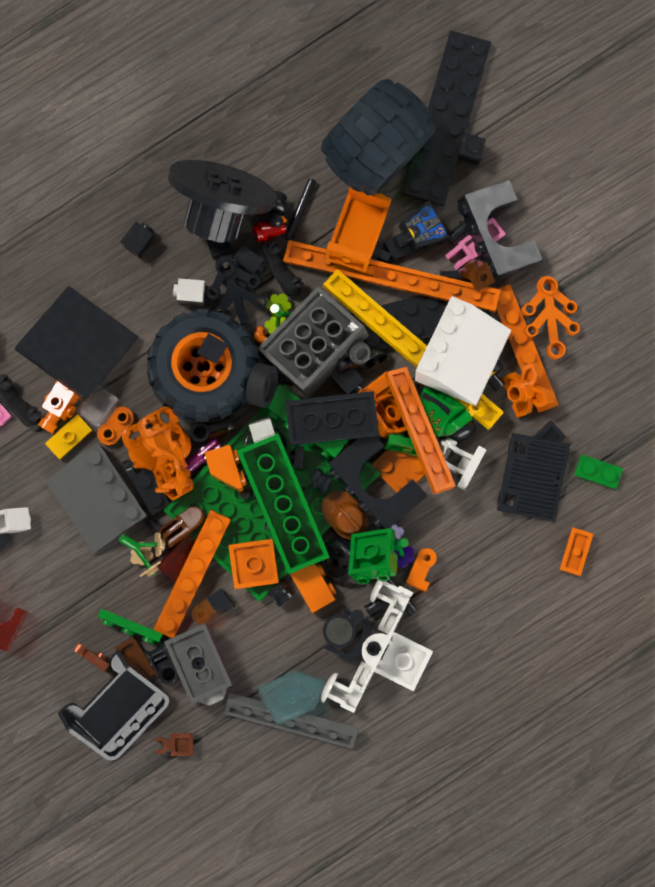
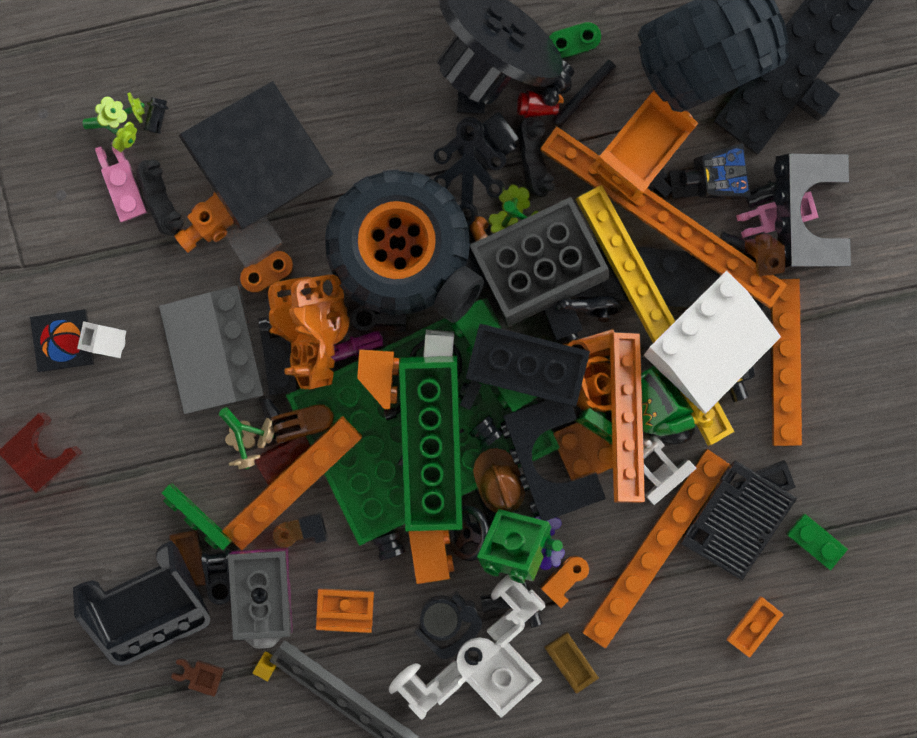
camera: 15 degrees right, 5 degrees up
(68, 437) = (206, 263): yellow plate -> none
(98, 659) = (142, 541): copper plate -> none
(138, 239) = (376, 56): black brick -> none
(190, 291) = (414, 144): white brick -> none
(212, 348) = (415, 230): black tile -> none
(222, 720) = (264, 667): none -> yellow piece
(253, 564) = (369, 500): orange plate -> none
(266, 654) = (345, 610): none -> orange plate
(278, 173) = (574, 40): none -> green plate
(291, 695) = (355, 670): clear light blue tile -> none
(359, 352) = (590, 297): dark grey plate -> none
(450, 630) = (571, 662): none -> pearl gold tile
(480, 522) = (655, 548): none -> orange plate
(525, 391) = (769, 415): orange plant -> none
(552, 314) = (834, 334): orange plant -> none

